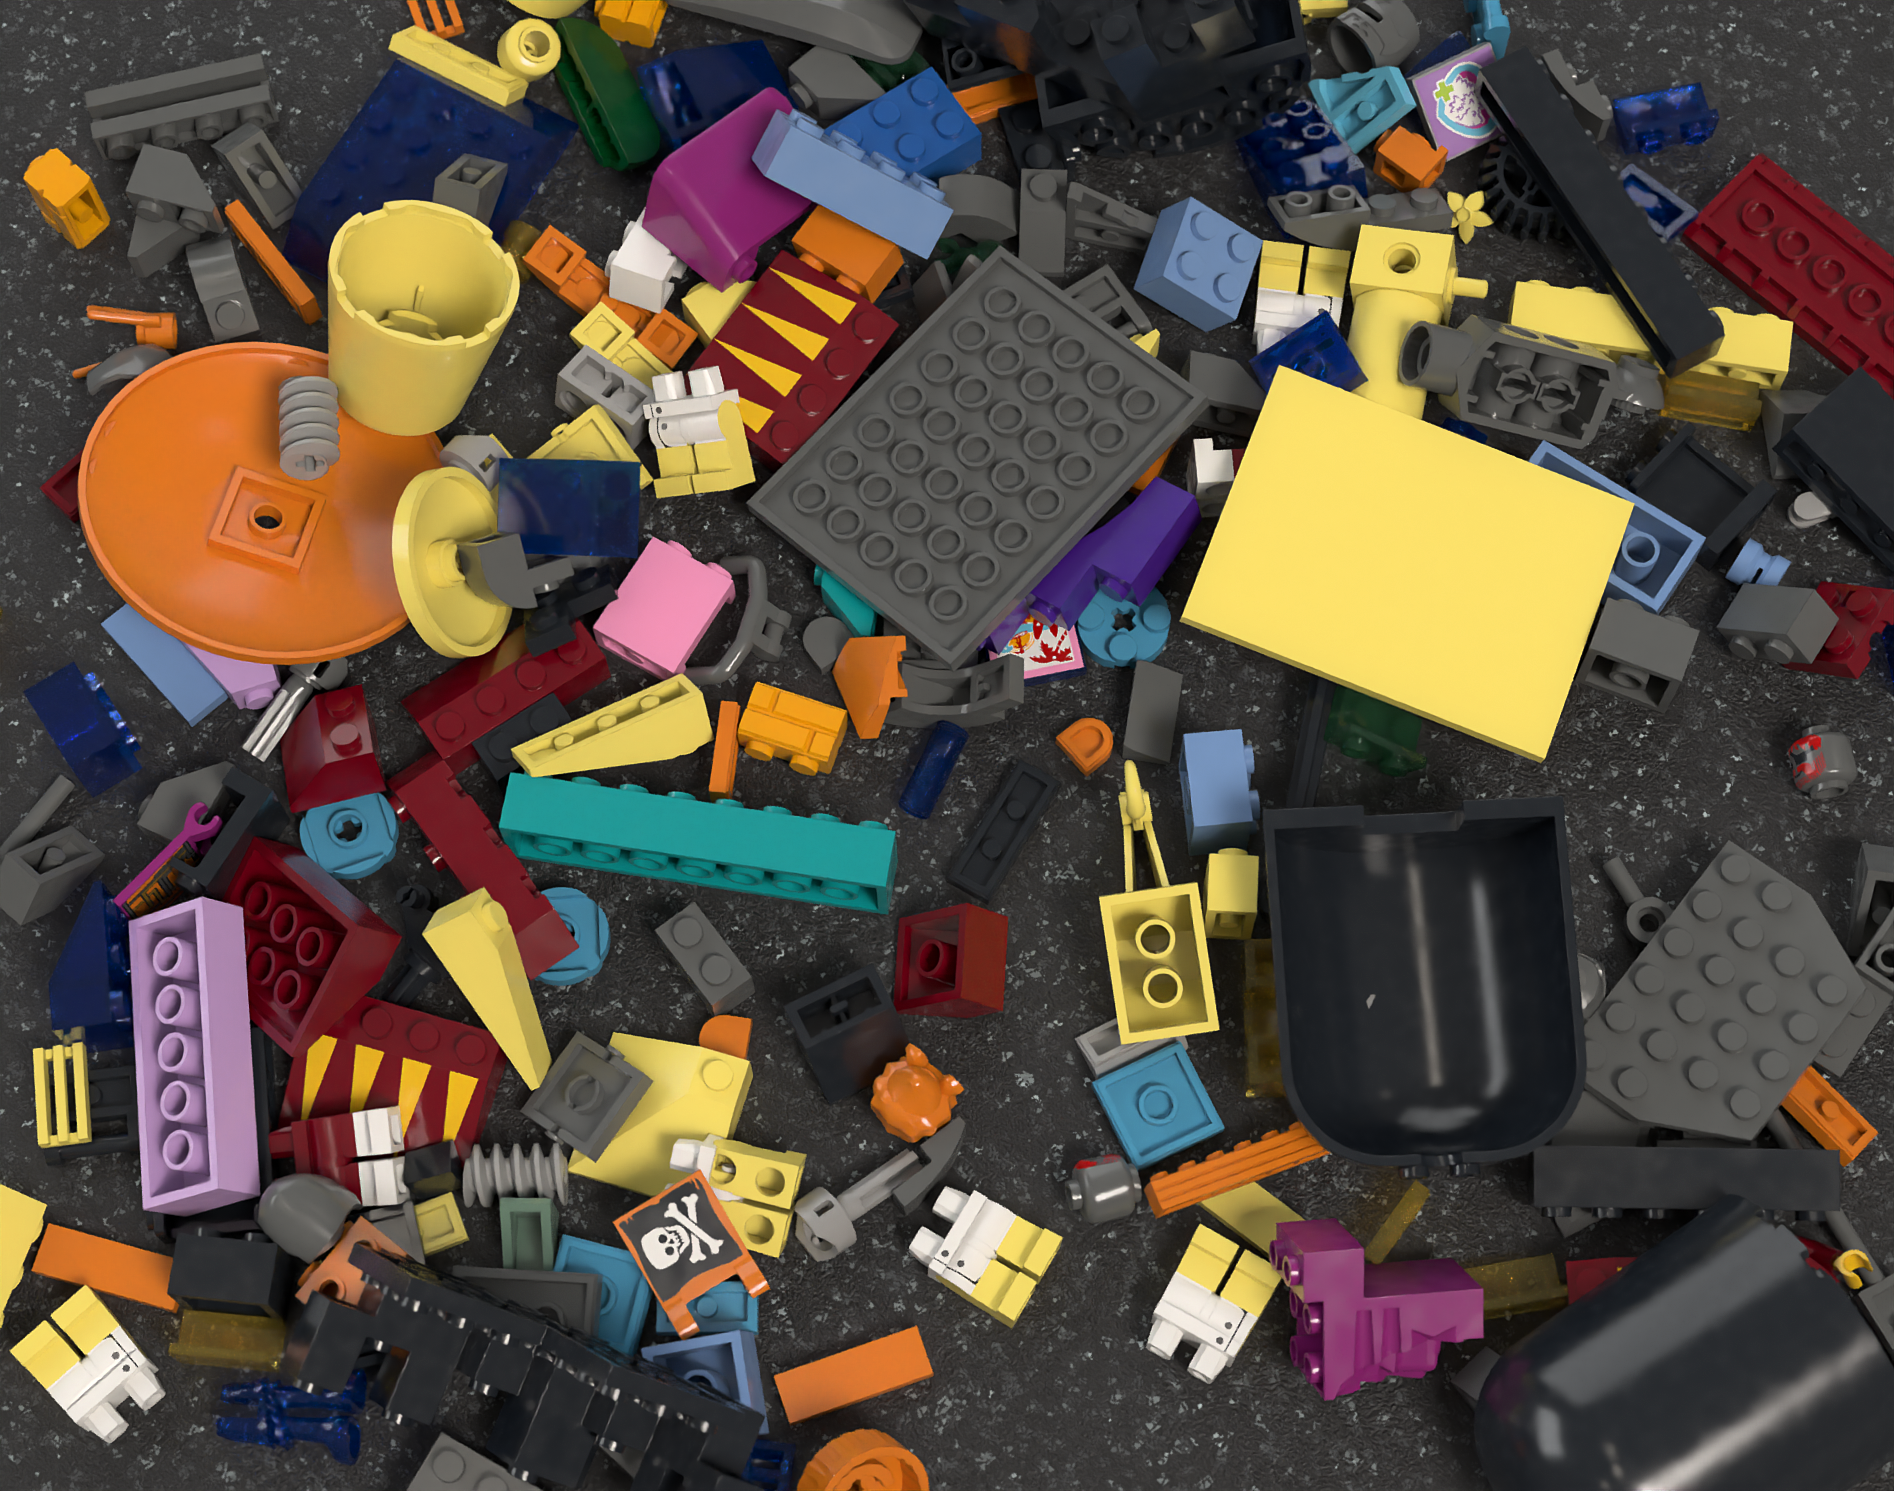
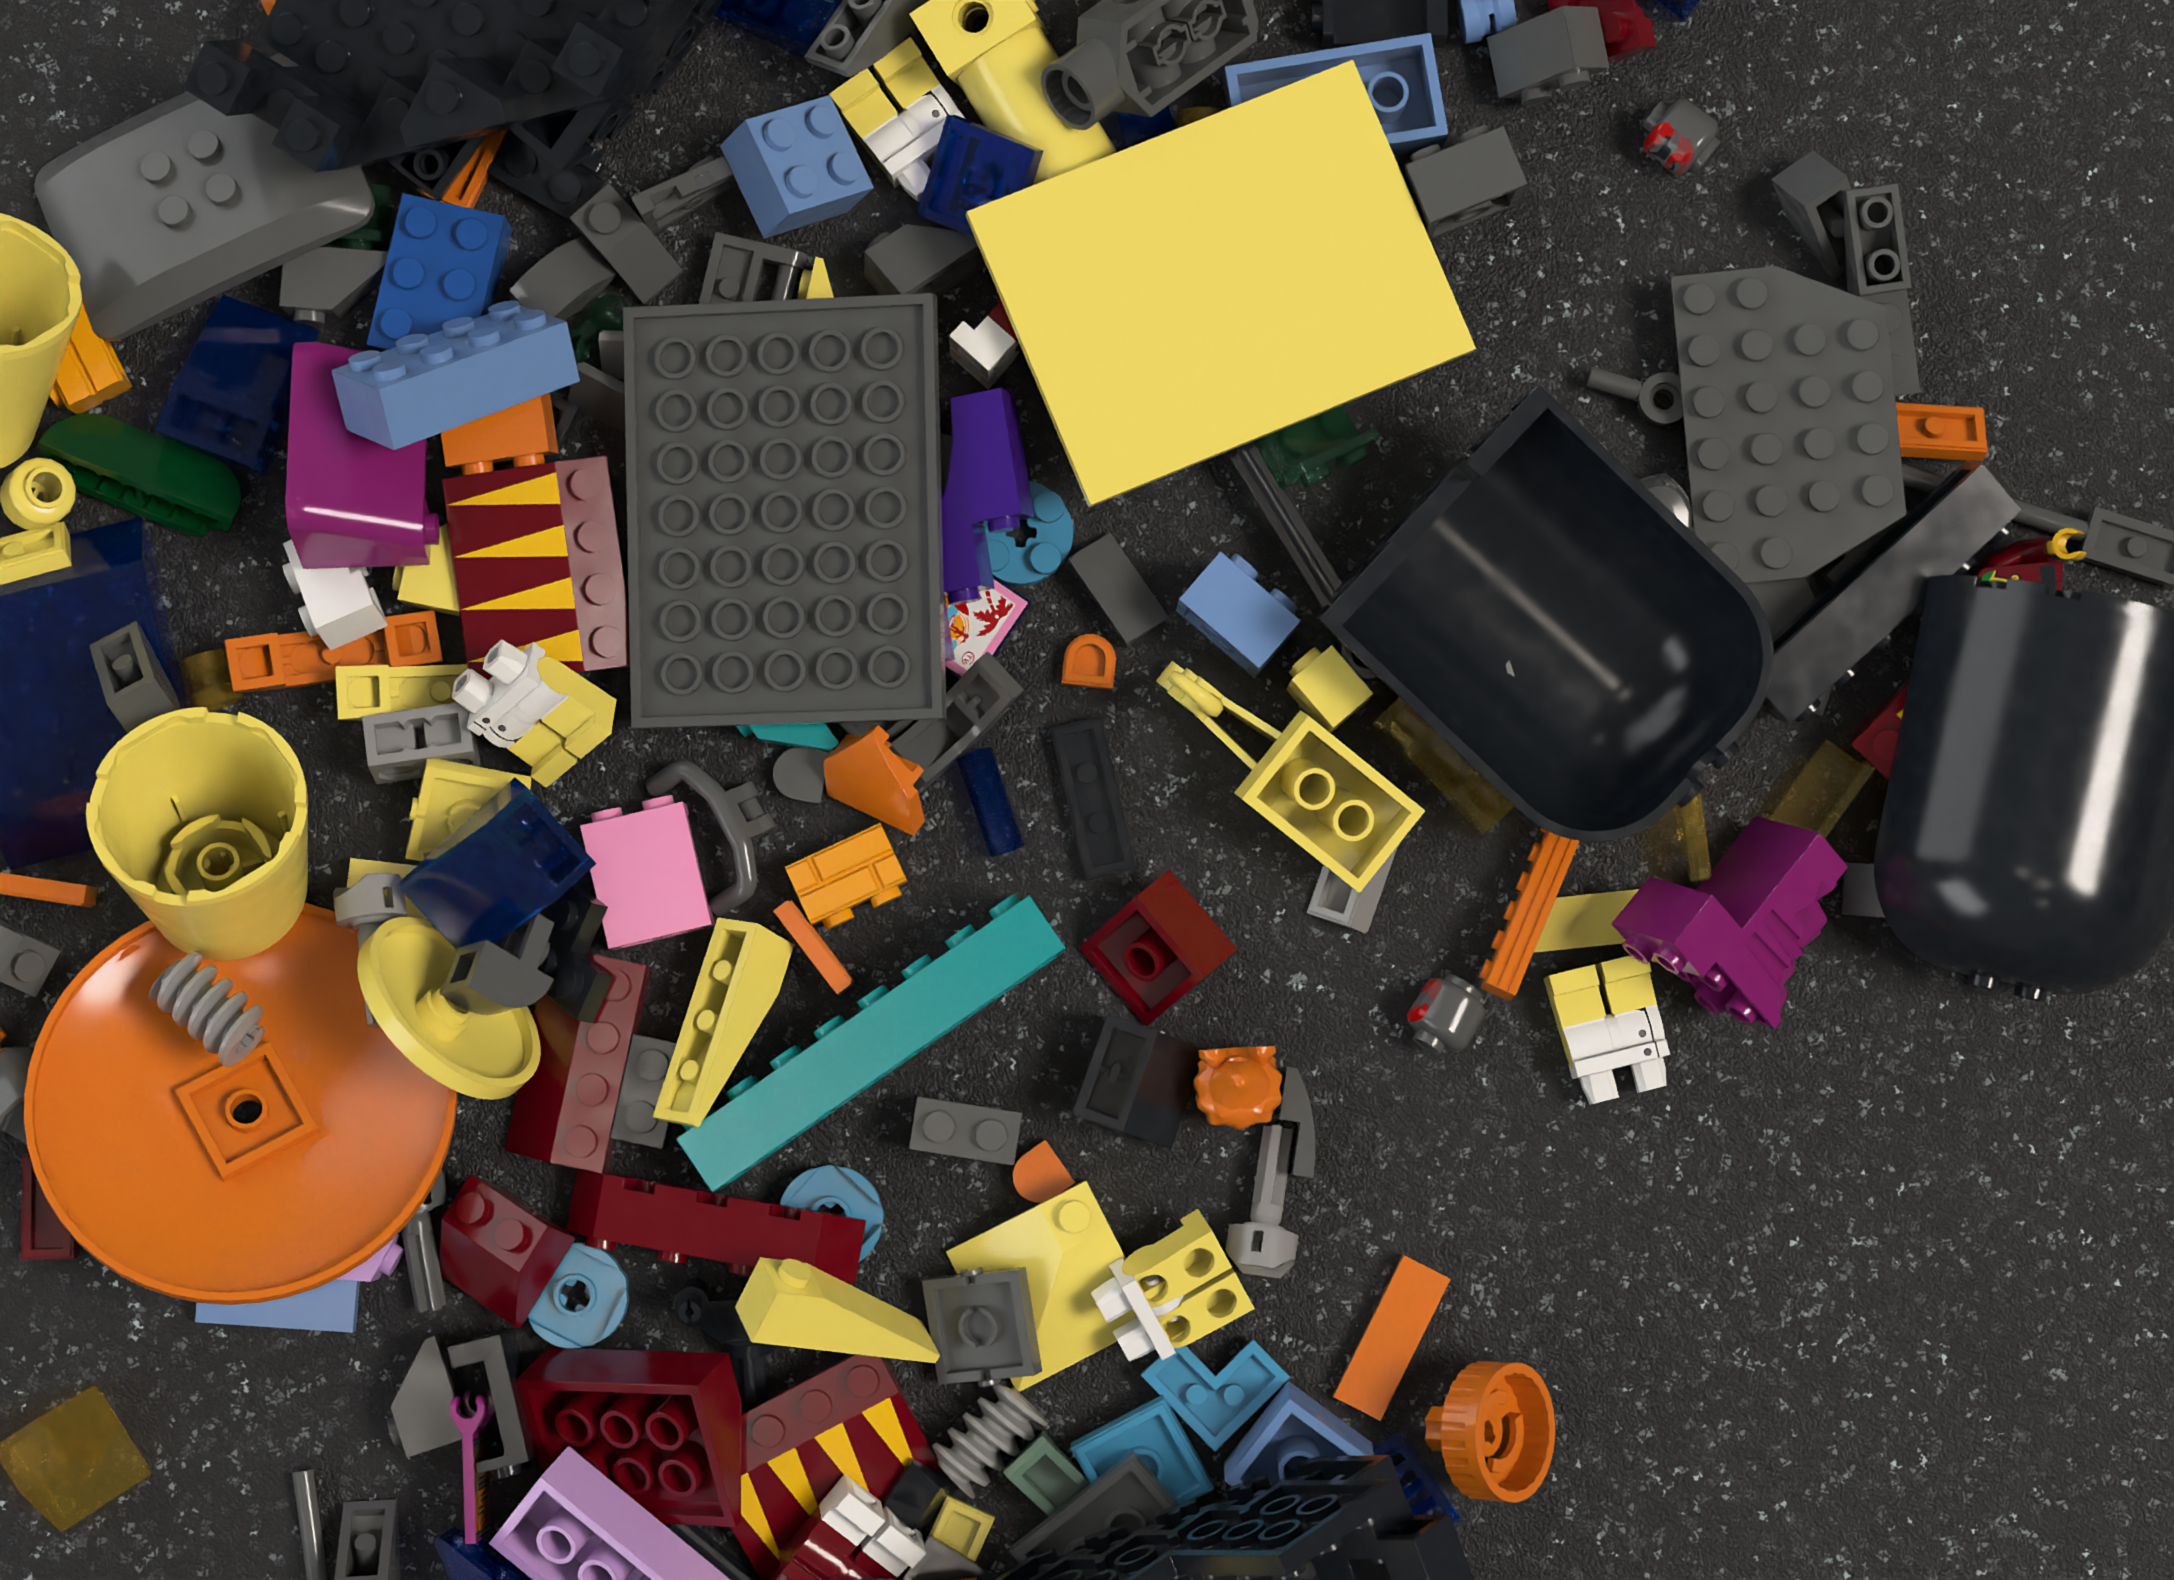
camera: 50 degrees left, 15 degrees up
(85, 728) = (282, 1423): clear blue brick -> none
(687, 1248) = (1182, 1372): flag -> none
(977, 1239) = (1388, 1155): hips -> none
(1158, 1106) = (1424, 909): dark azure plate -> none

